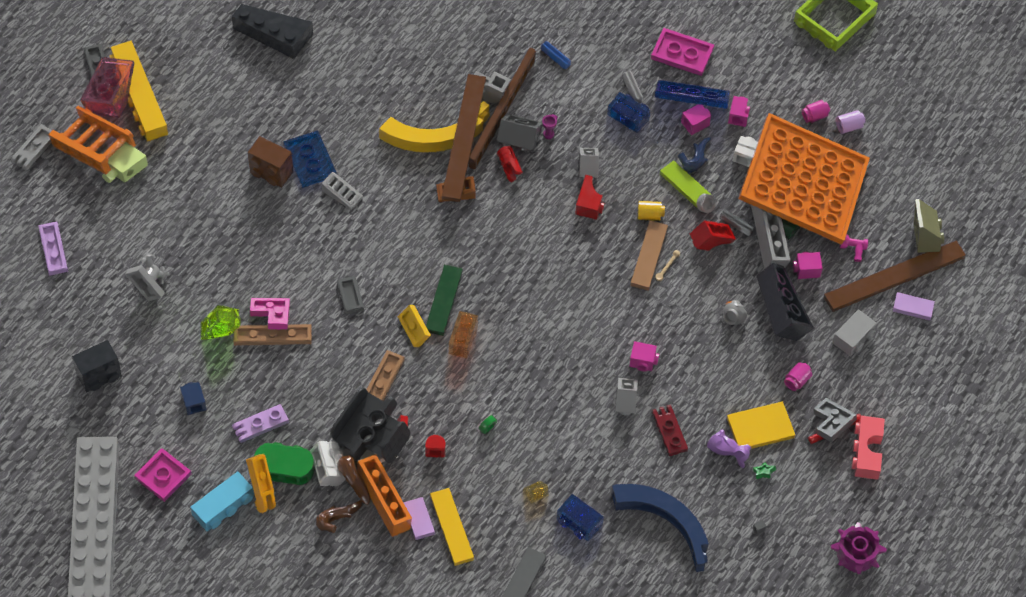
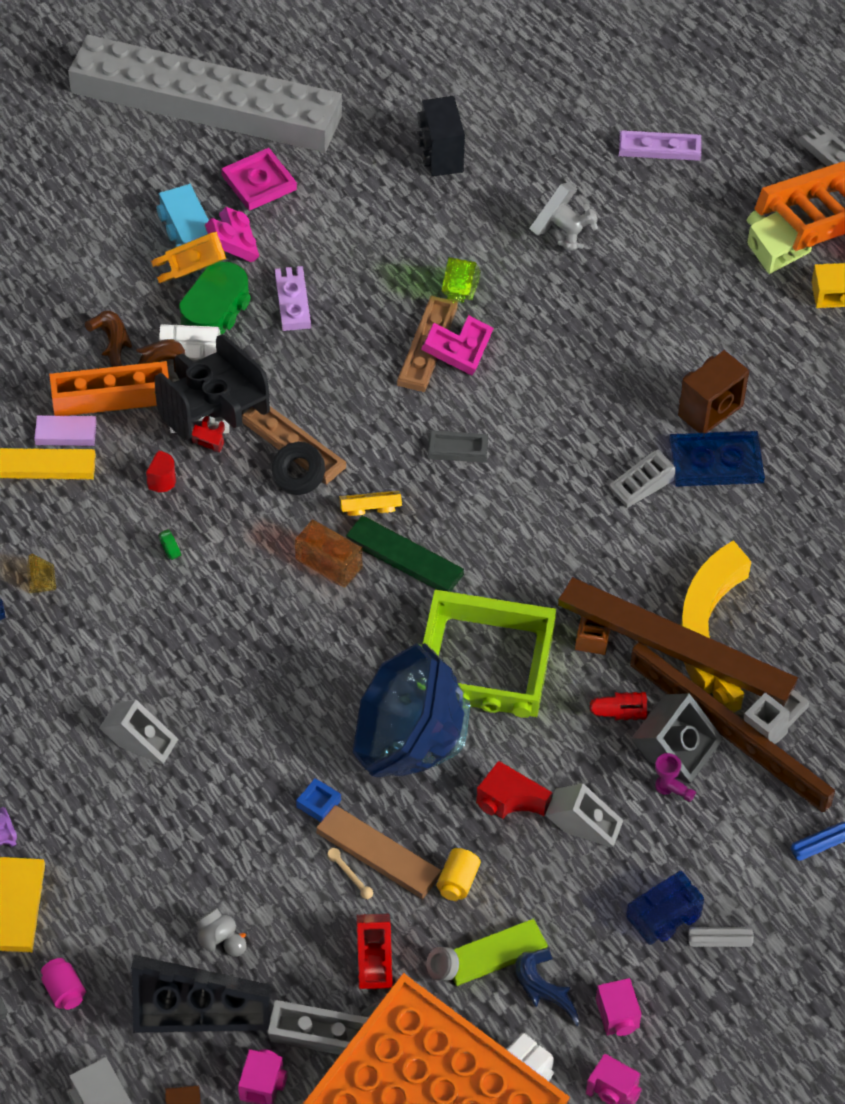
camera: 110 degrees right, 5 degrees down
(193, 398) = (359, 230): dark blue brick -> none
(228, 465) = (234, 234): none -> dark pink plate
(412, 364) = (288, 454): none -> black tyre
(500, 208) = (503, 614): none -> lime piece
(582, 256) = (411, 715): none -> dark blue rock
(631, 291) = (318, 800): none -> blue plate
(643, 356) = (193, 775): dark pink brick -> none
(670, 431) = (58, 776): dark red hinge -> none
(682, 51) = (771, 1038): dark pink plate -> none
(692, 94) = (668, 1014): clear blue tile -> none

